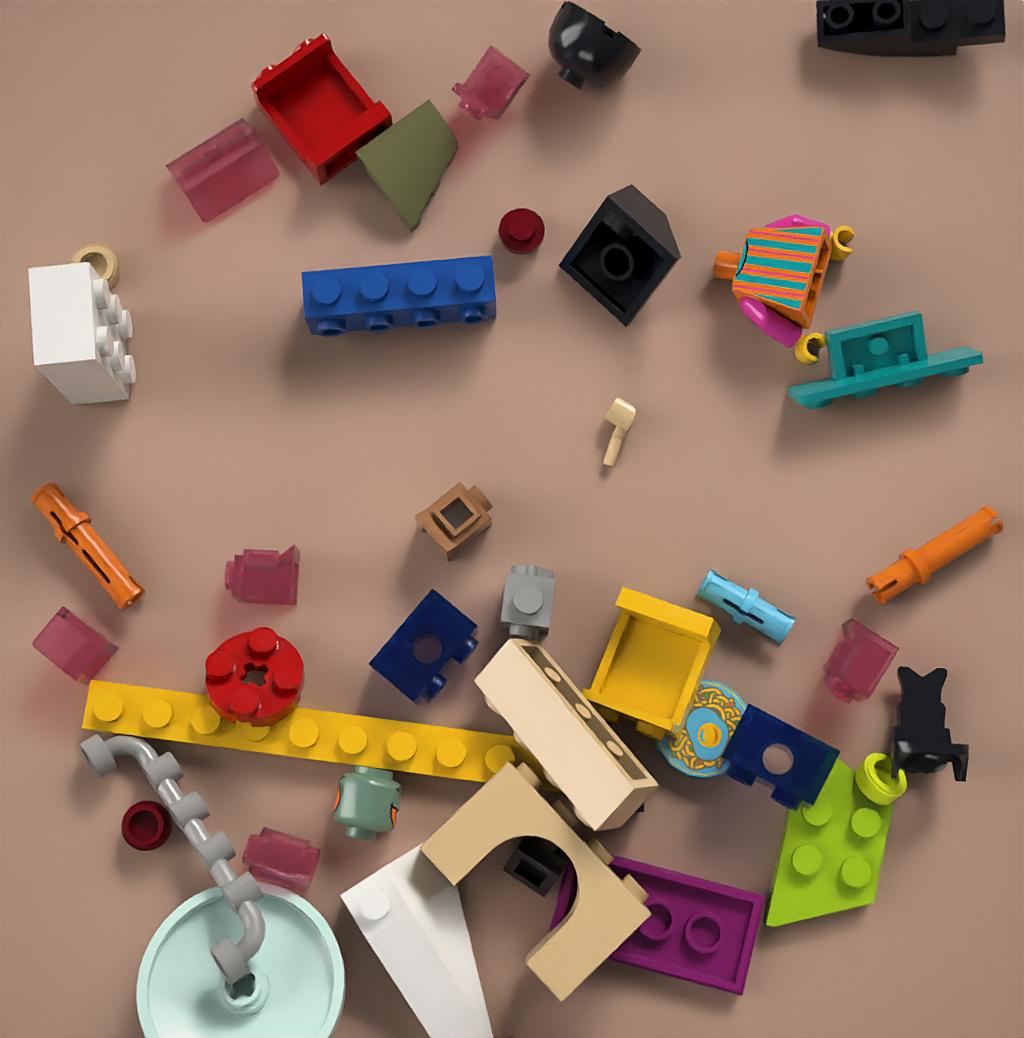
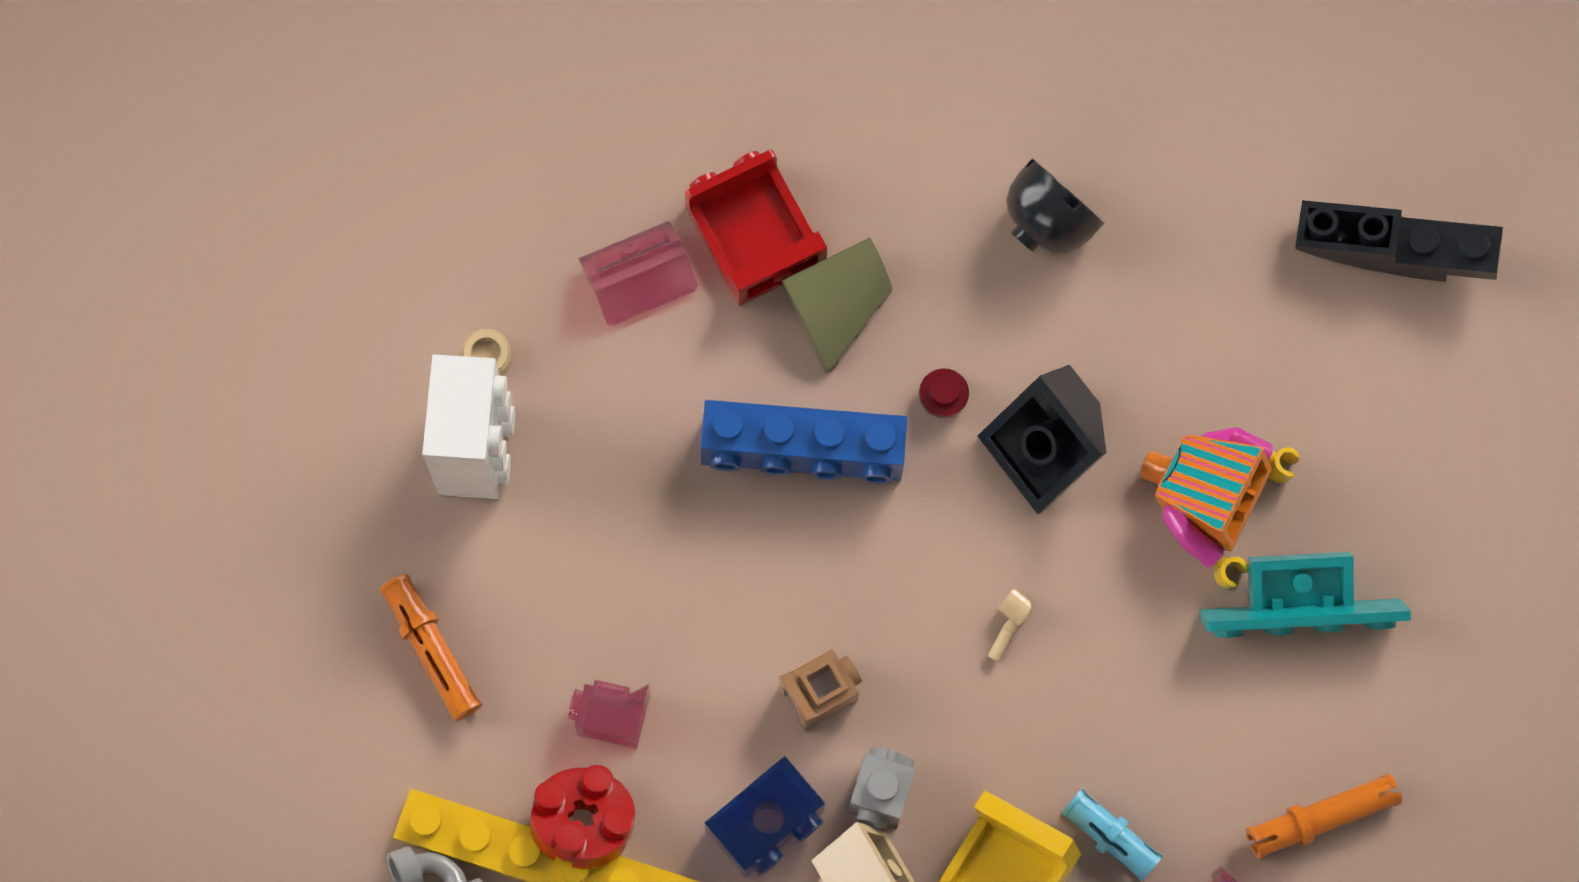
camera: 10 degrees right, 5 degrees down
(74, 646) = (401, 749): clear pink panel -> none
(491, 85) = (938, 232): clear pink bracket -> none

